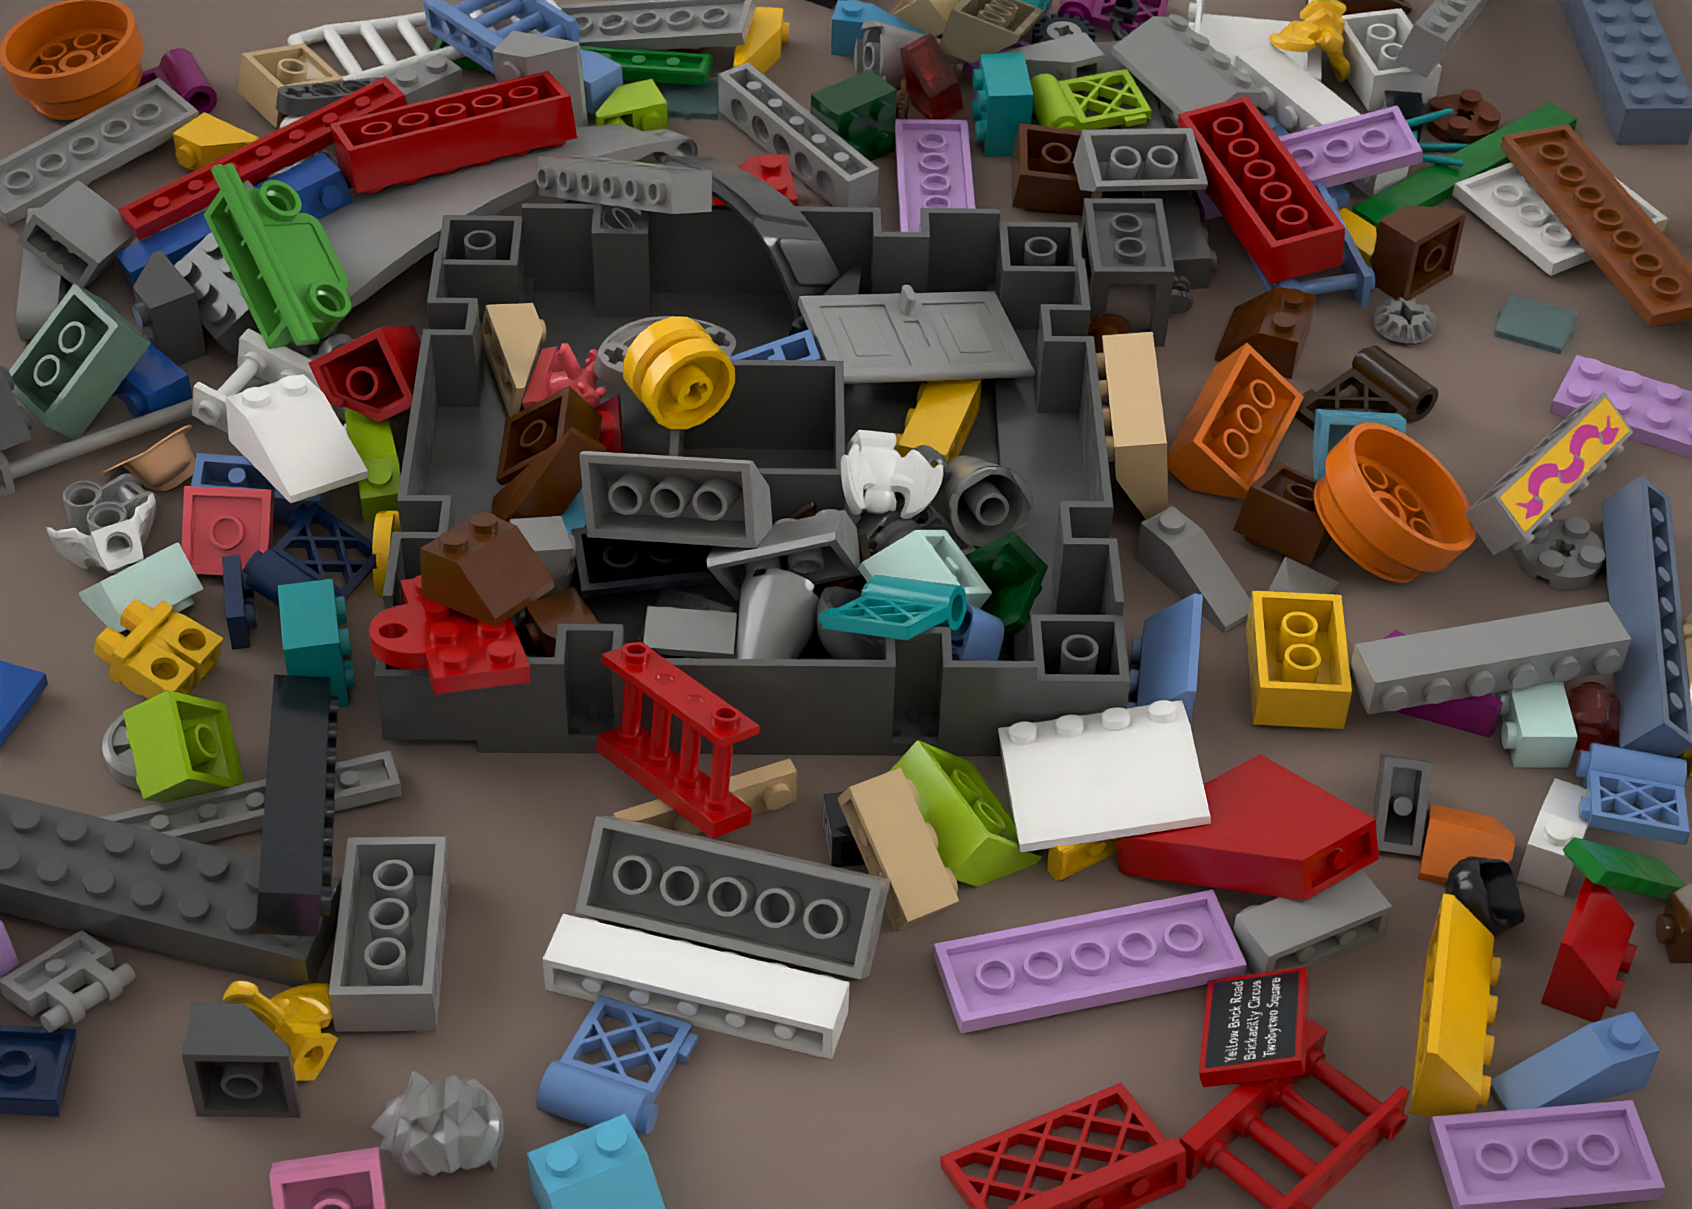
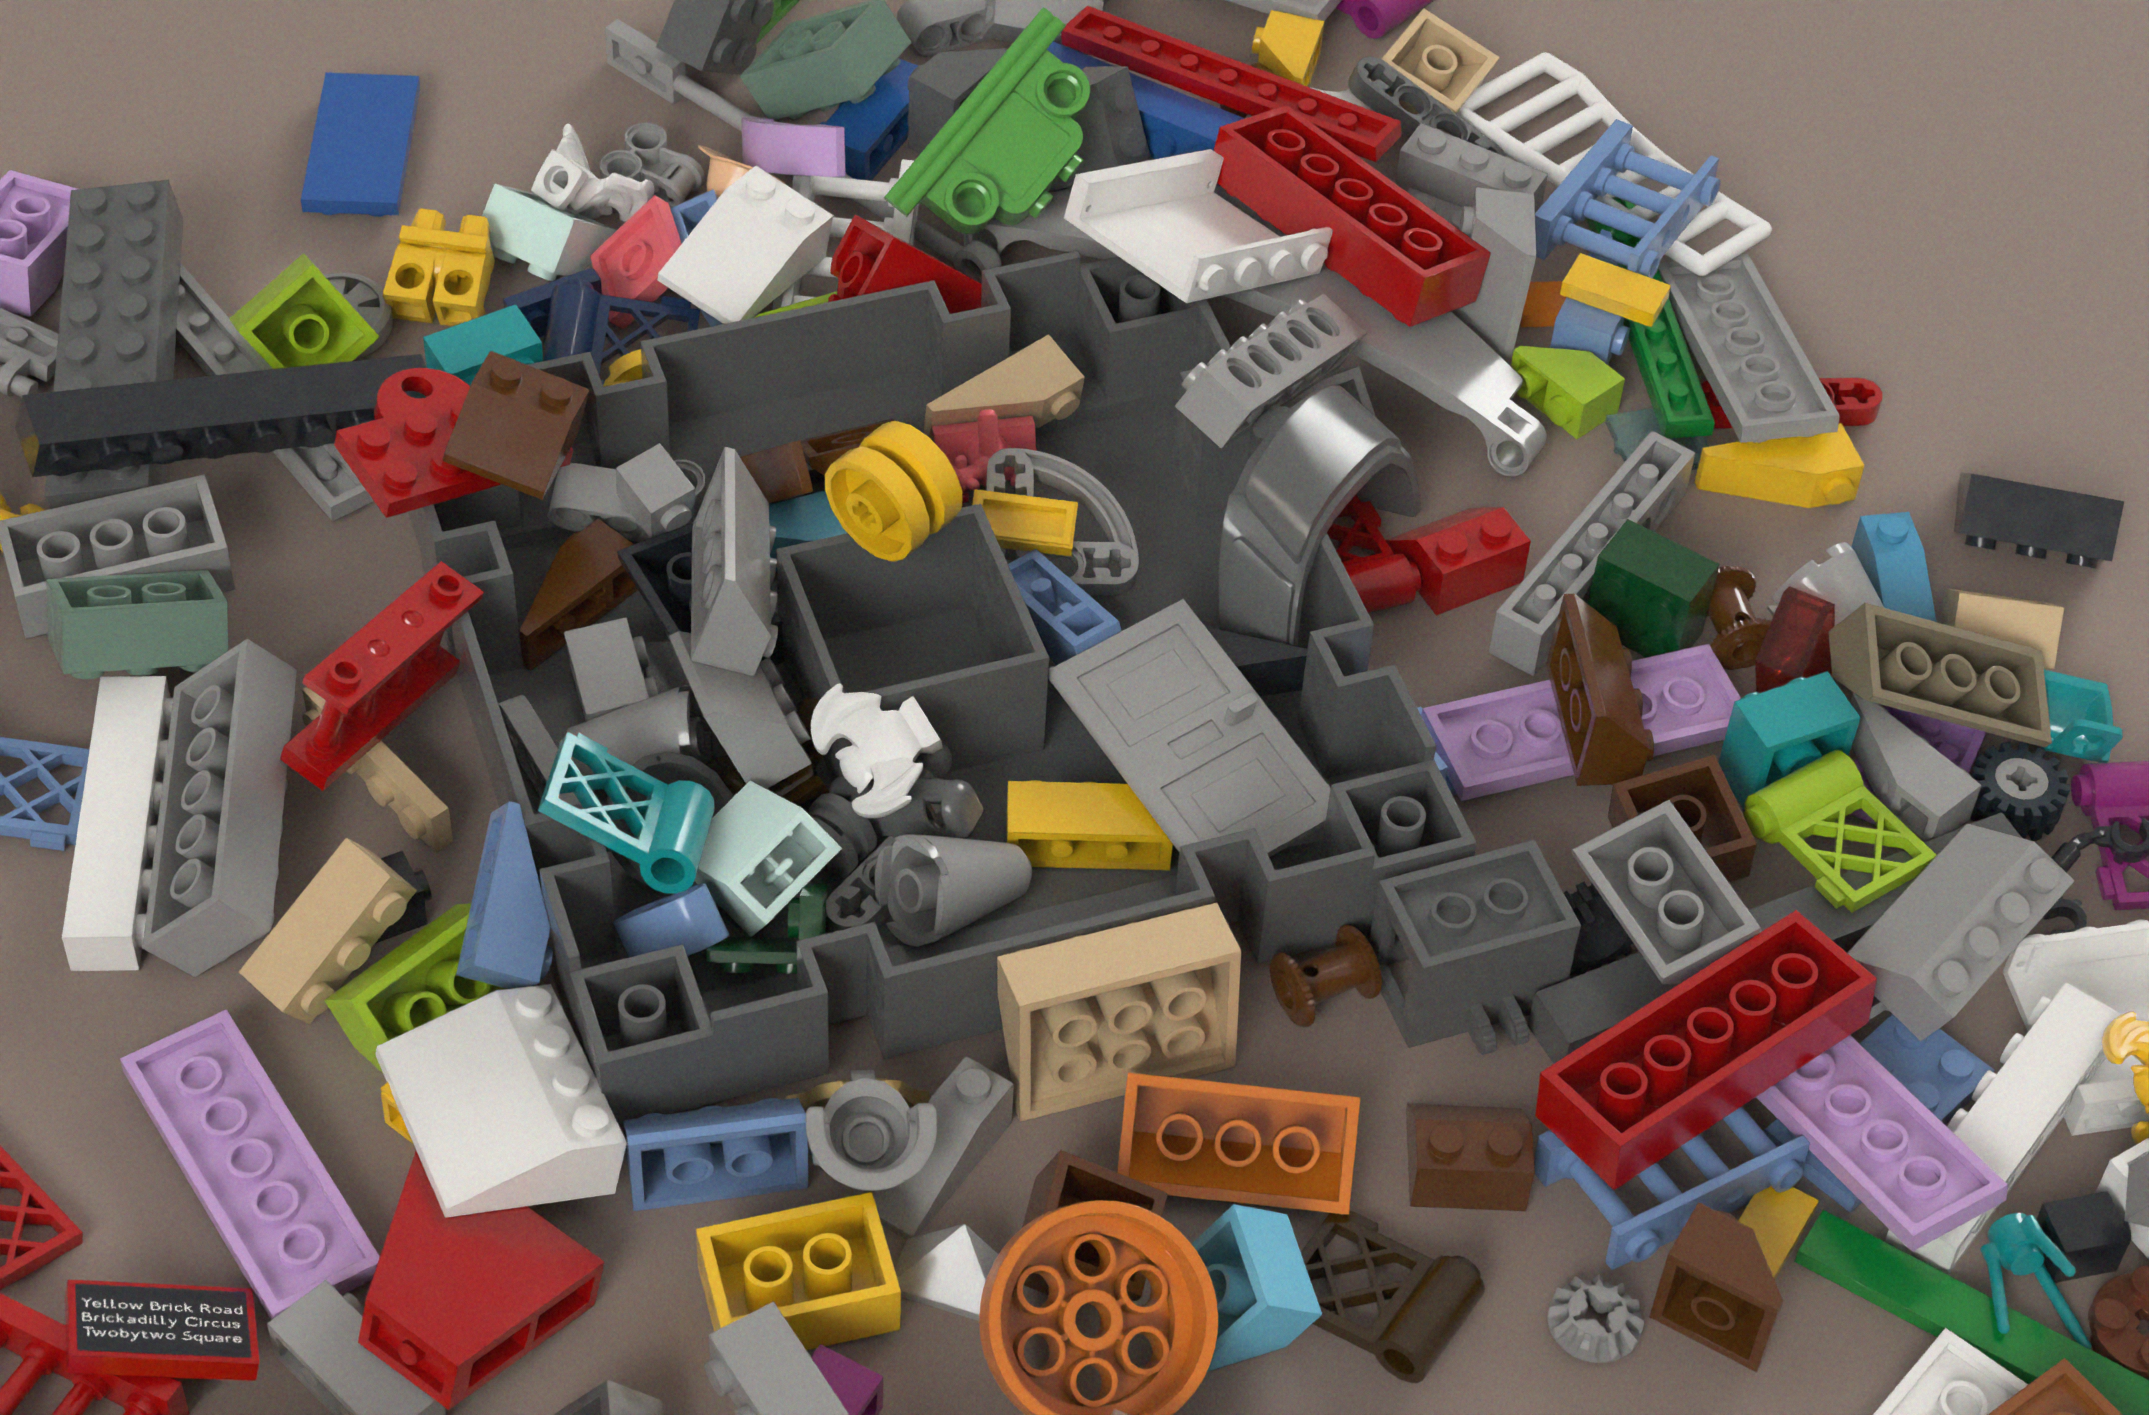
camera: 70 degrees right, 5 degrees up
(176, 402) = (793, 147): none -> lavender slope
(446, 201) = (1185, 235): none -> white panel
(499, 916) = (136, 622): none -> sand green brick
(597, 43) = (1615, 290): none -> yellow tile
(931, 717) = (507, 913): none -> medium blue slope
(944, 161) = (1596, 697): none -> reddish brown slope
(1216, 567) = (869, 1130): none -> light grey helmet

